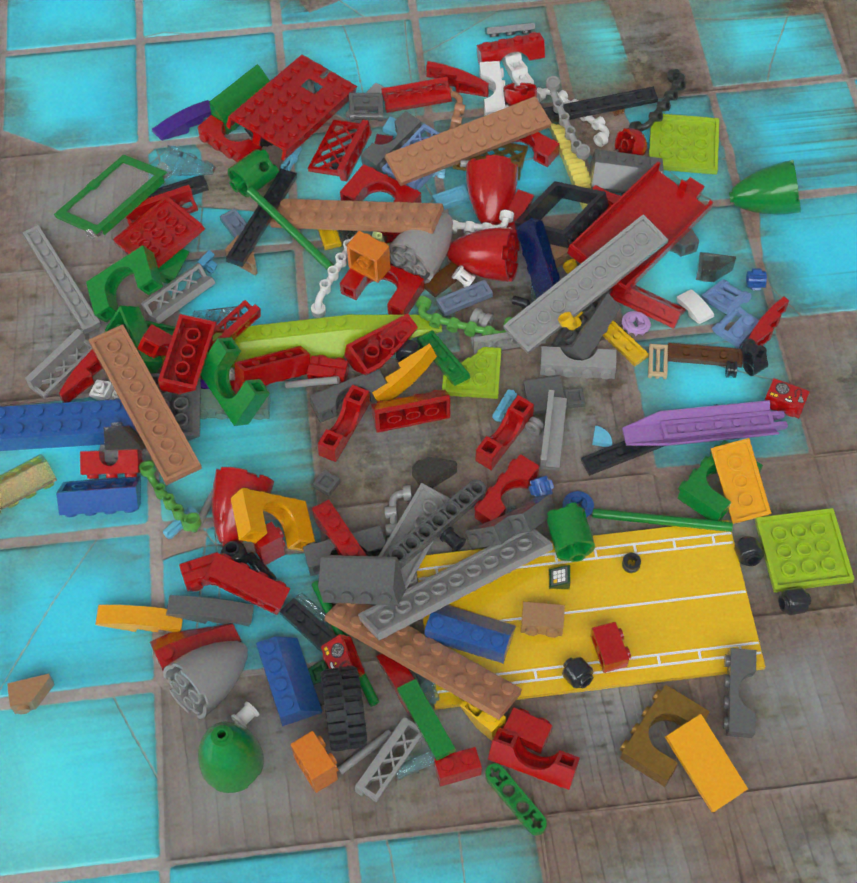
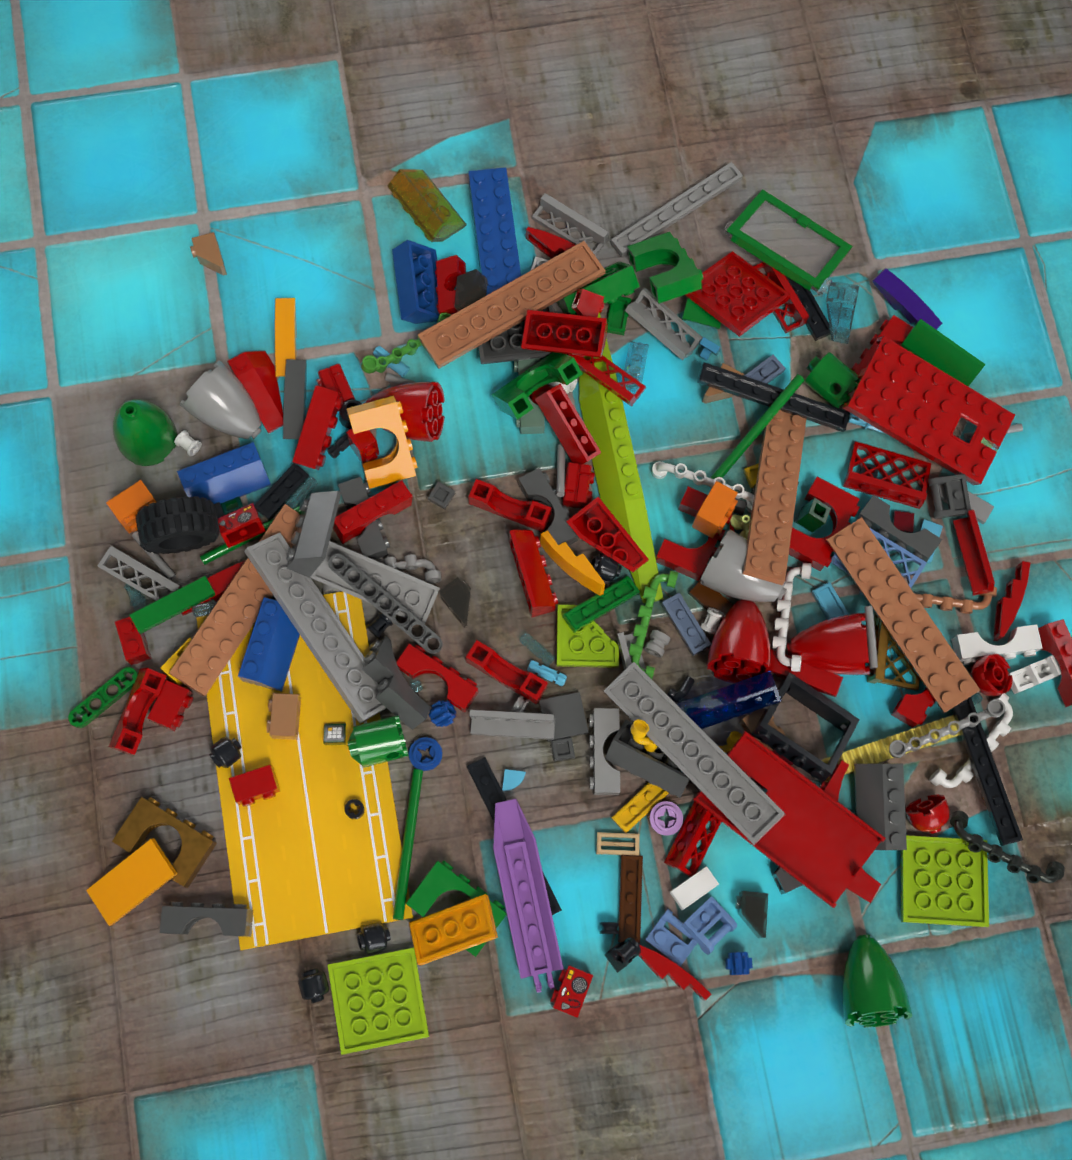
camera: 80 degrees right, 15 degrees up
(374, 193) = (813, 515): none -> dark green brick
(481, 412) = (537, 649): none -> clear light blue axle

